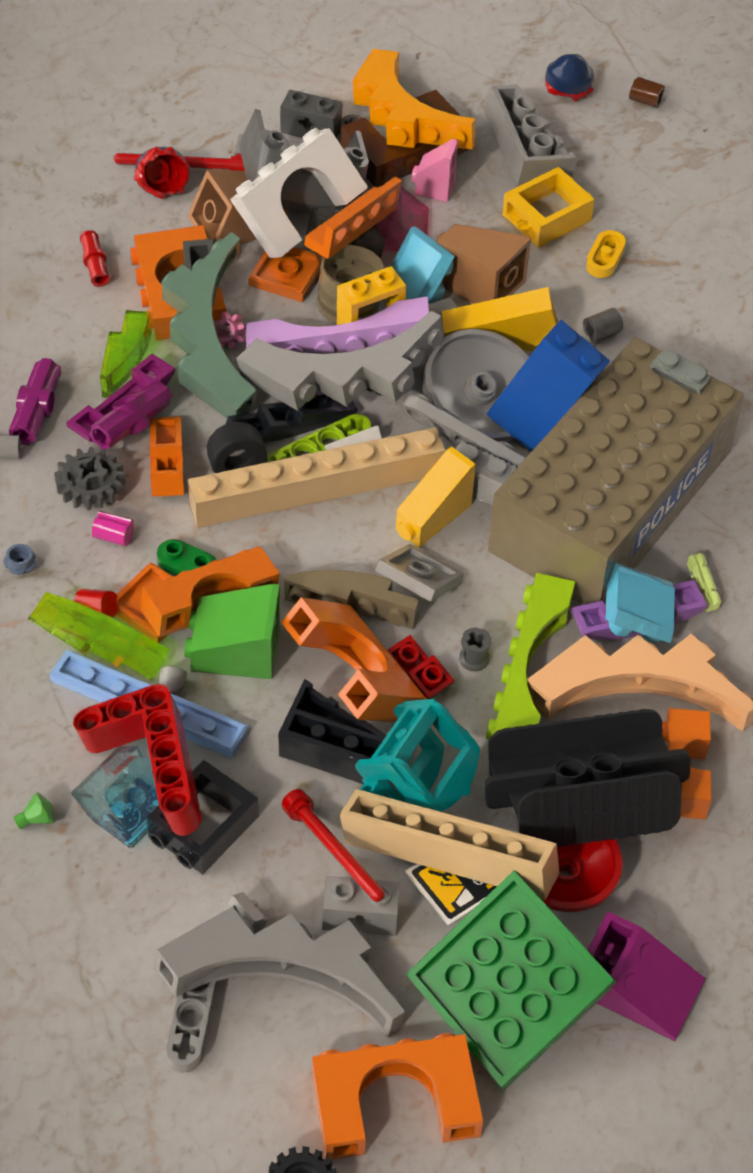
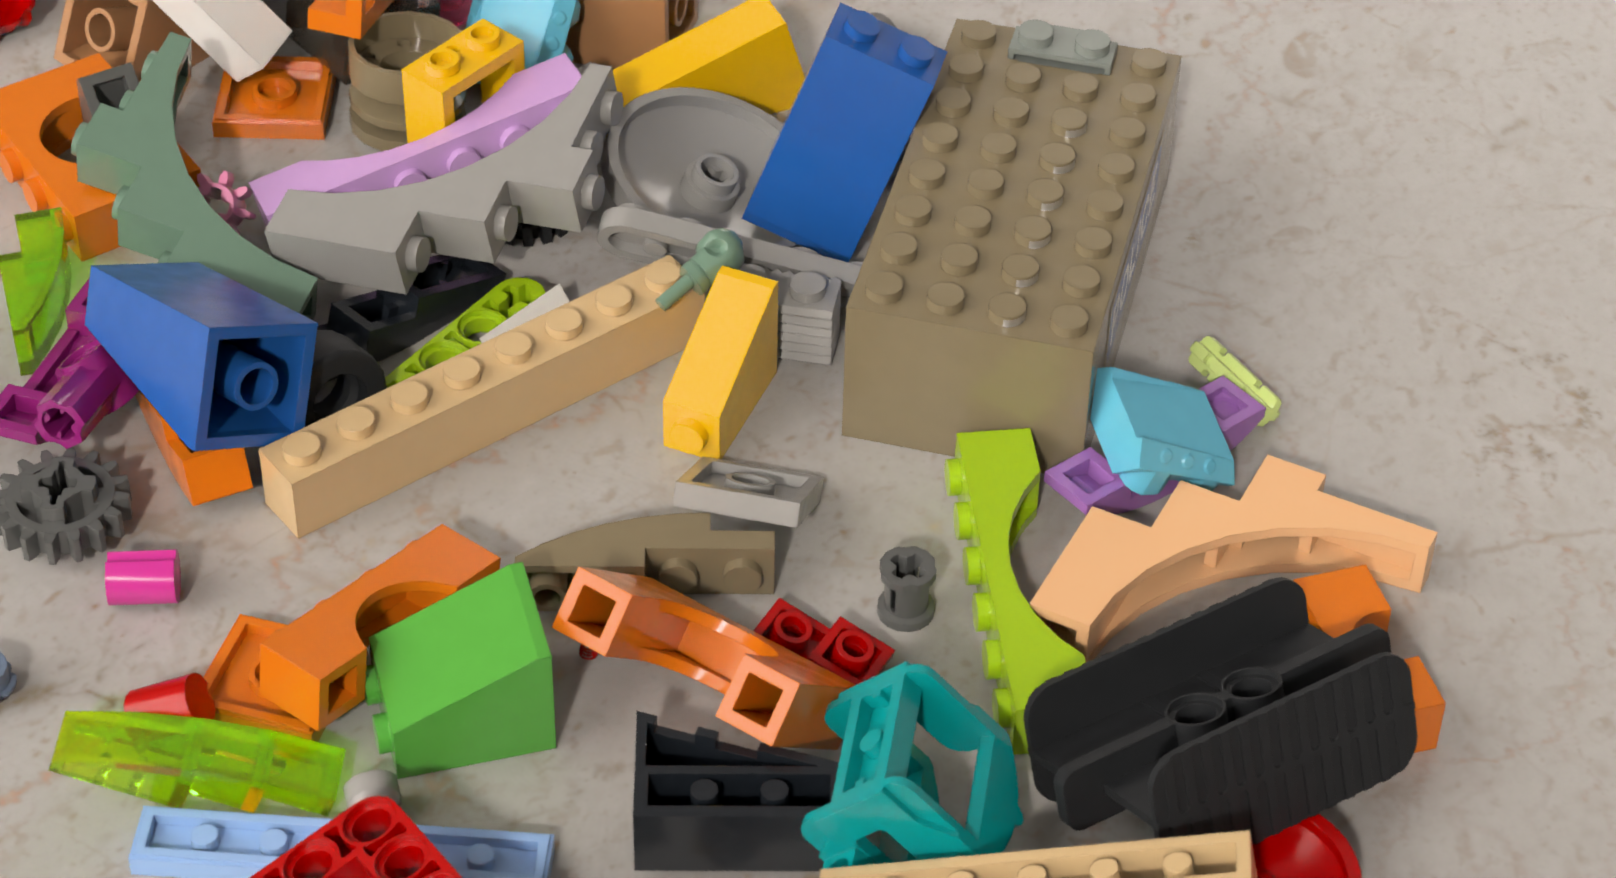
camera: 20 degrees left, 10 degrees down
(178, 419) = (205, 351): none -> blue slope
(185, 558) = (290, 590): green plate -> none
(452, 436) = (699, 272): none -> sand green piece

